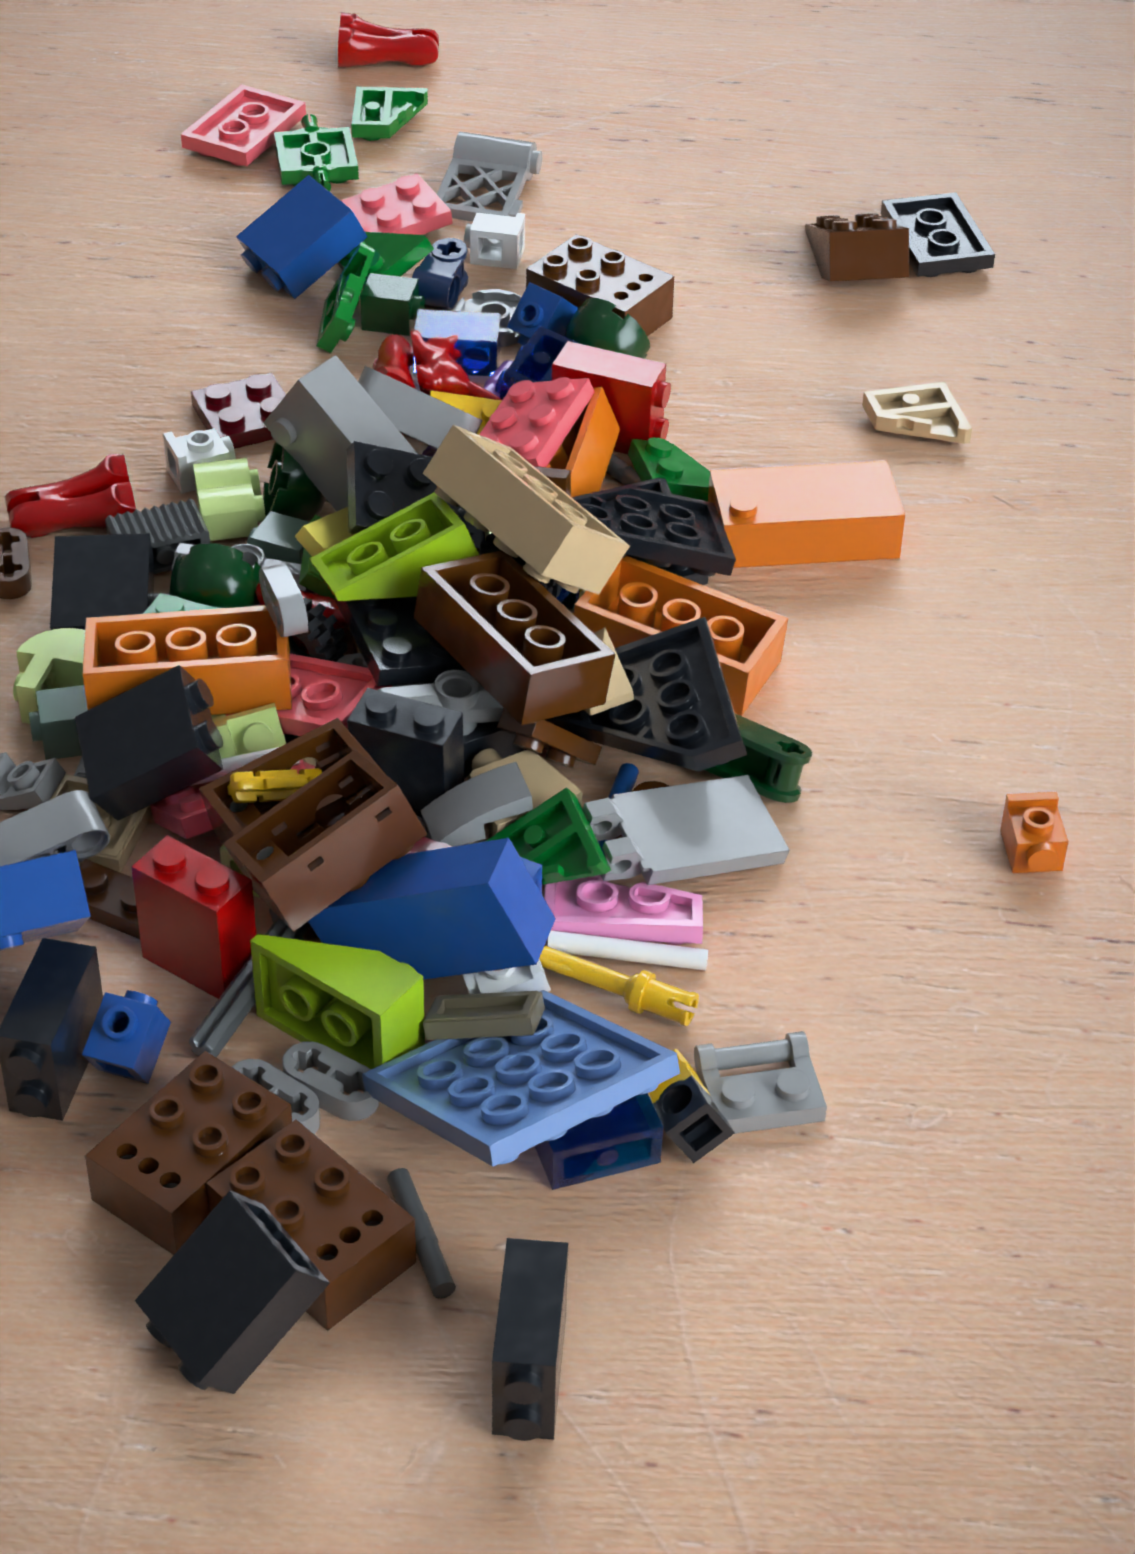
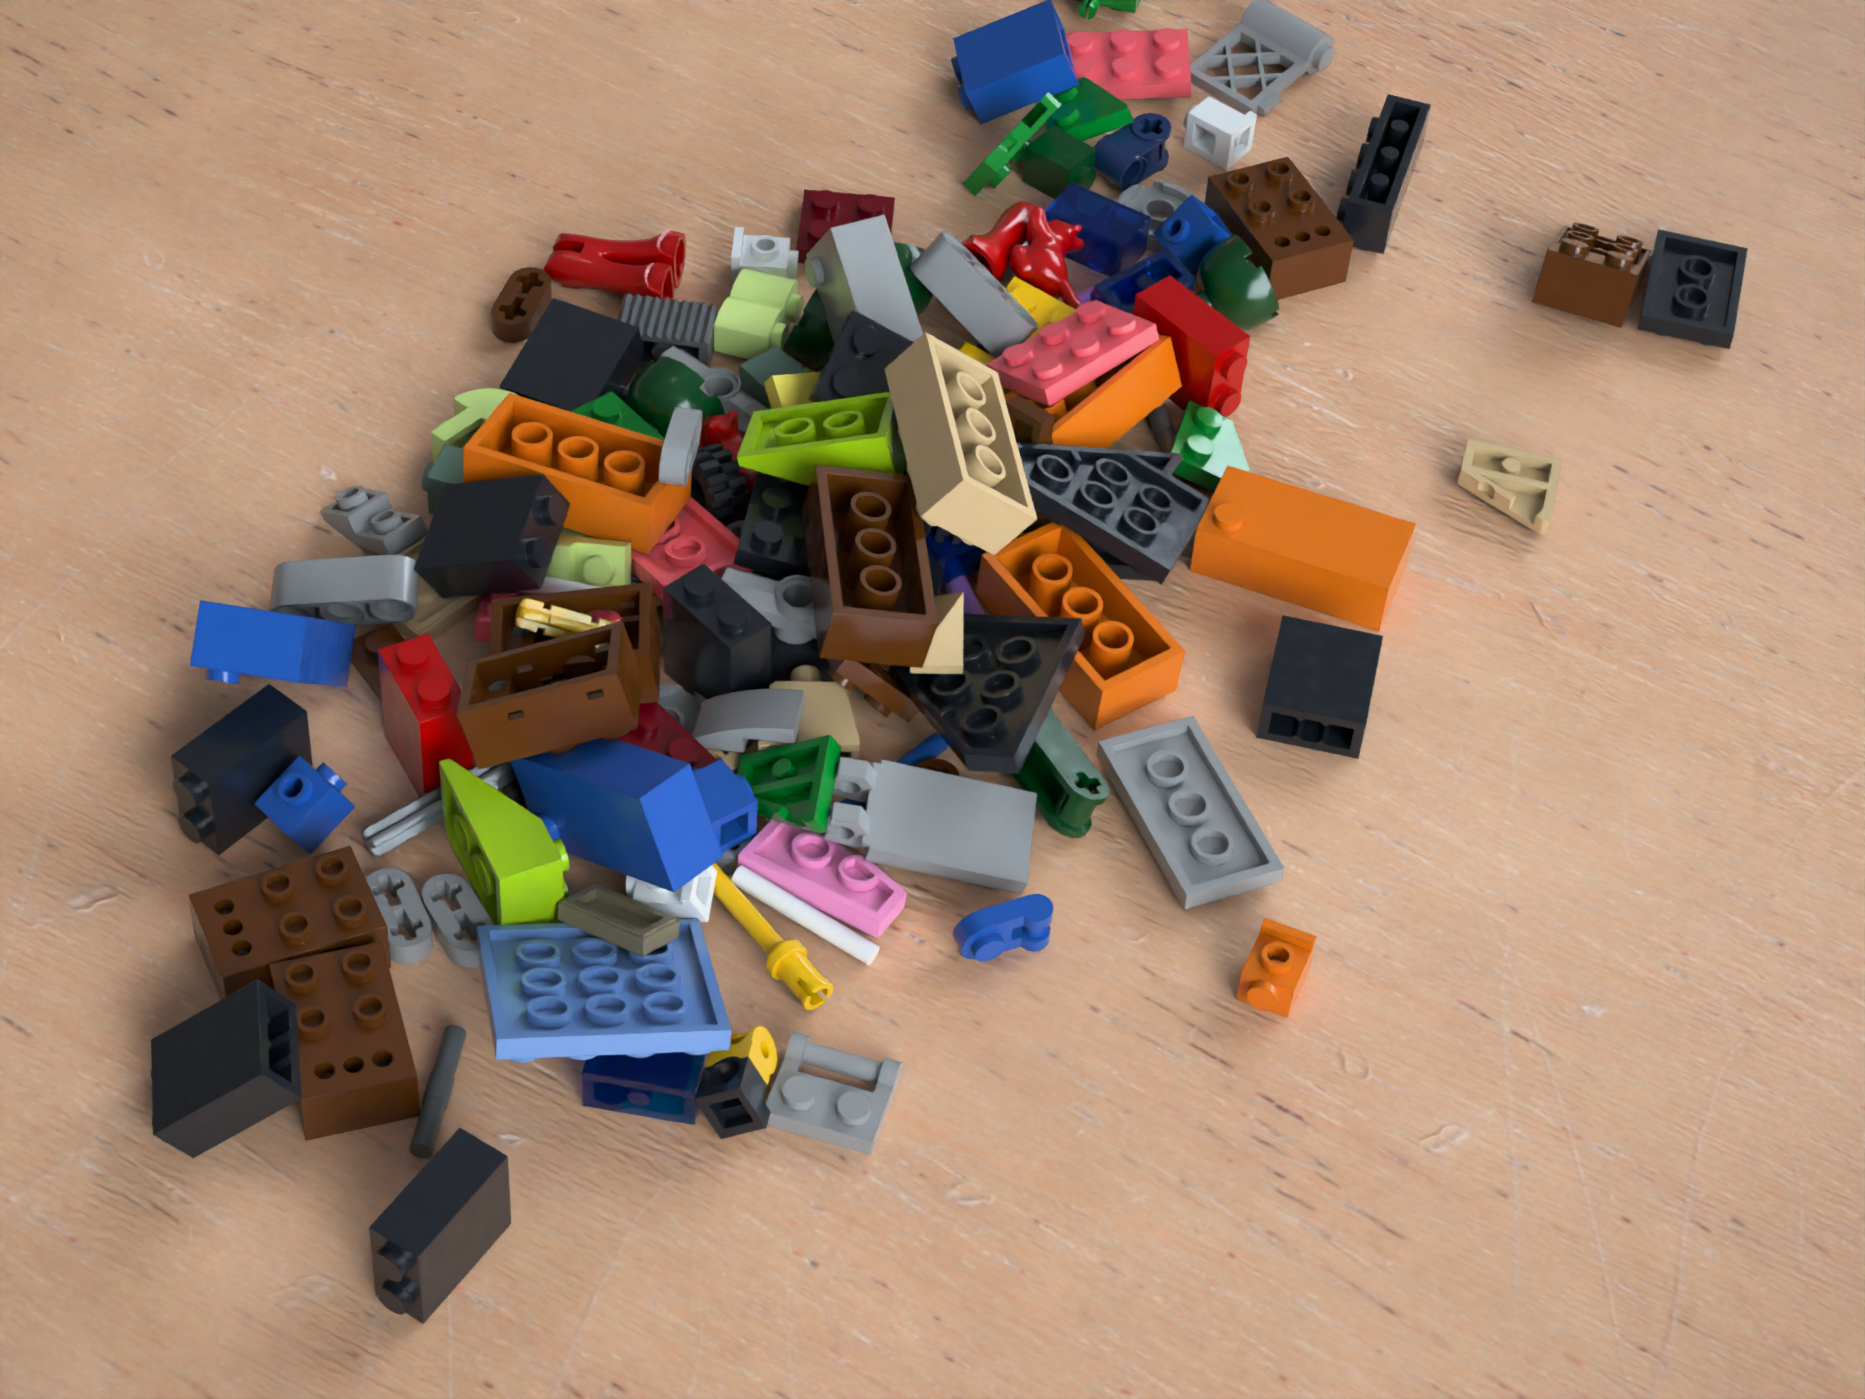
camera: 25 degrees right, 5 degrees up
(652, 220) = (1383, 172): none -> black brick
(802, 888) = (1005, 927): none -> blue plate
(874, 744) = (1189, 812): none -> light grey plate
(898, 611) = (1320, 687): none -> black brick

